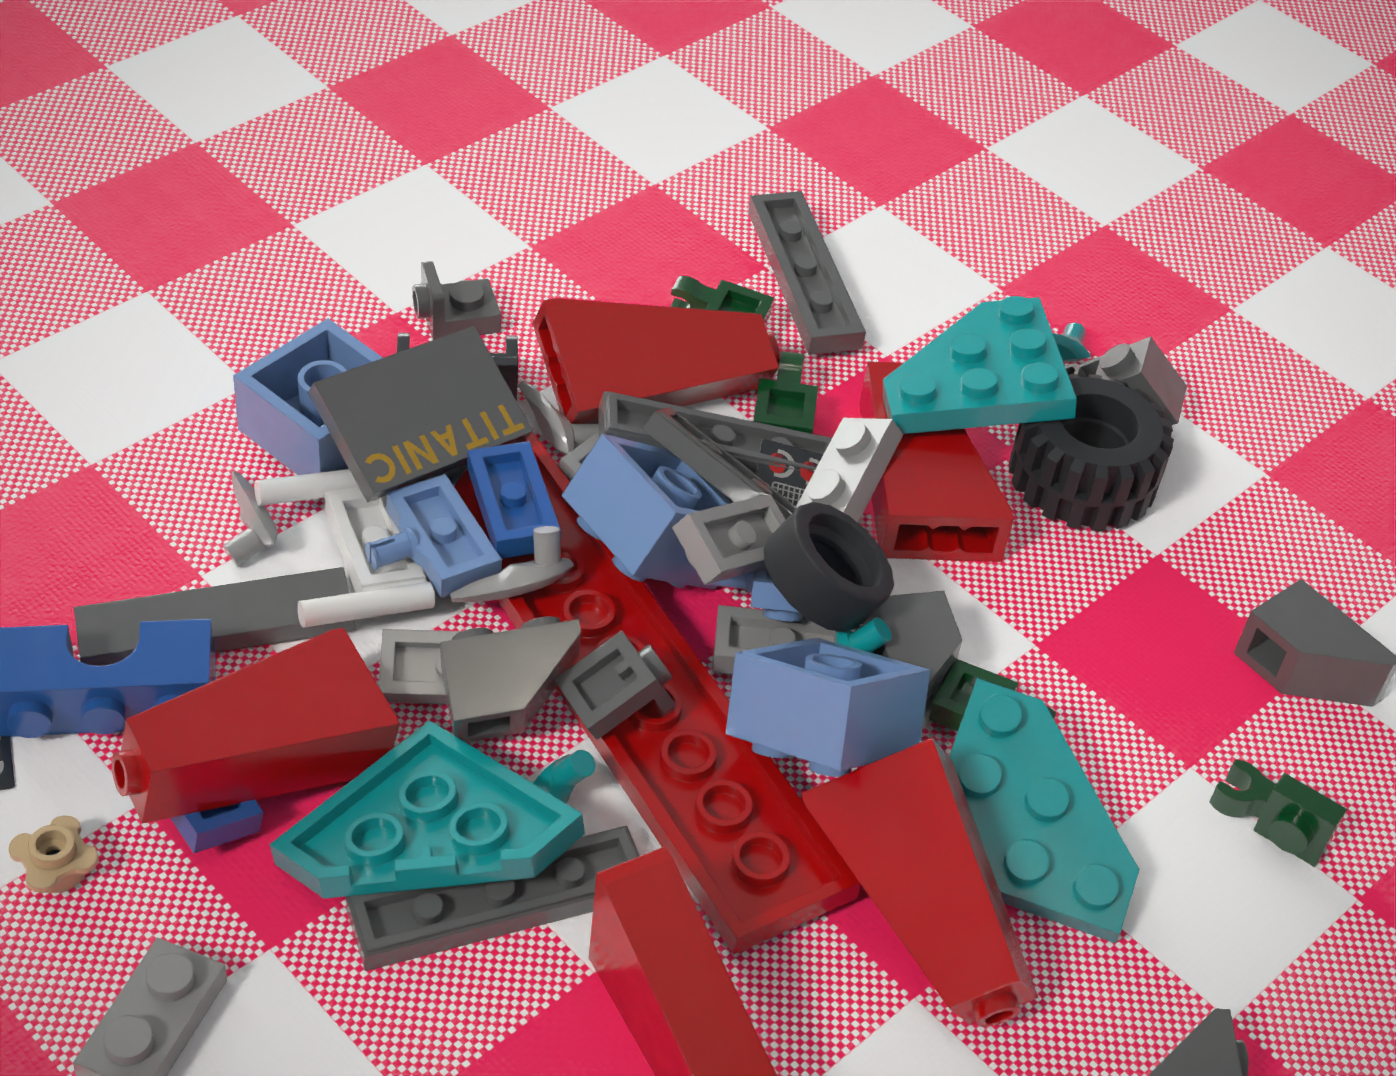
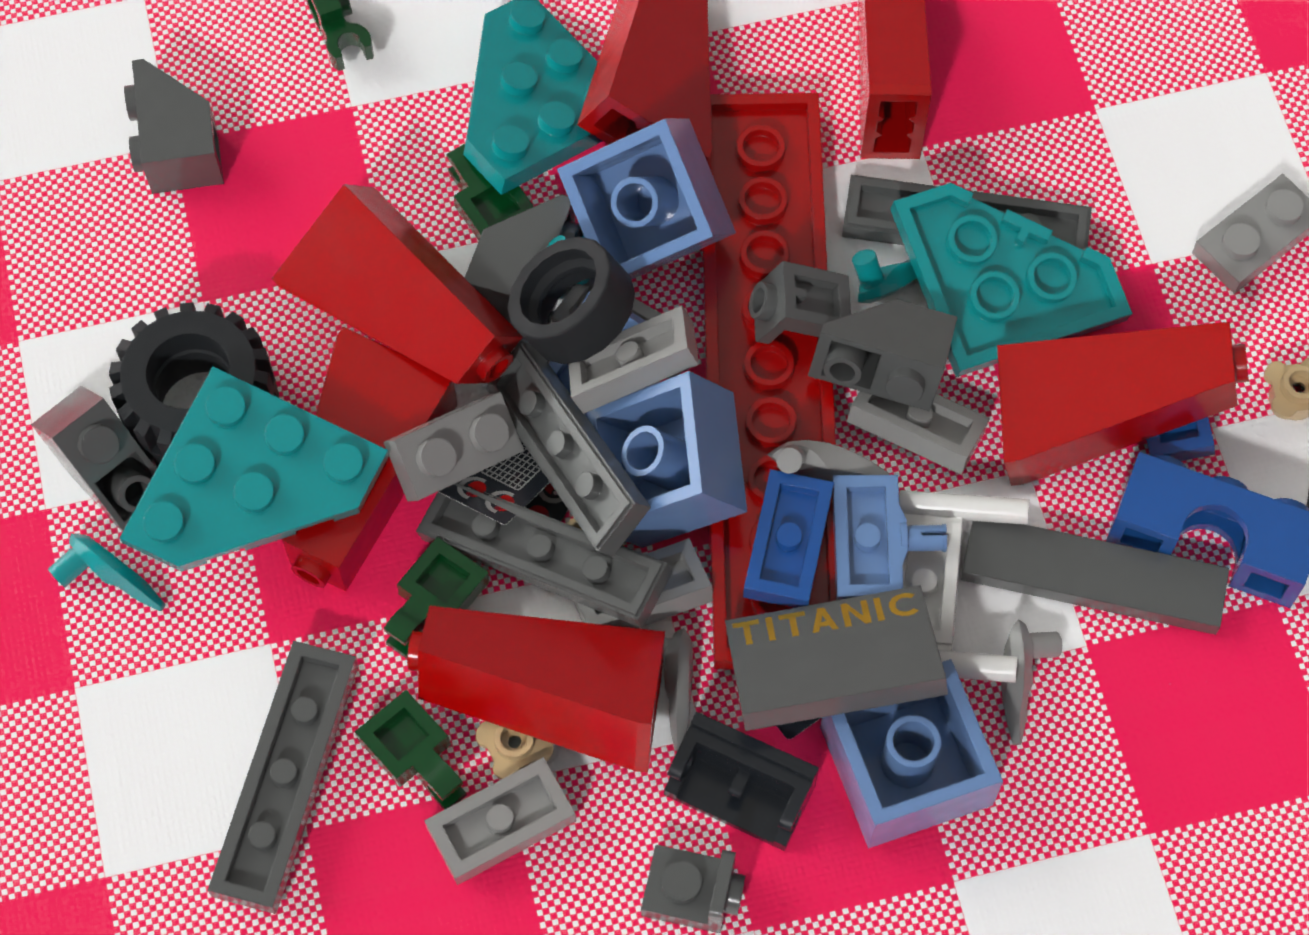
camera: 145 degrees left, 20 degrees up
(636, 279) = (500, 820): none -> light grey plate
(989, 558) = (394, 286): none -> red slope

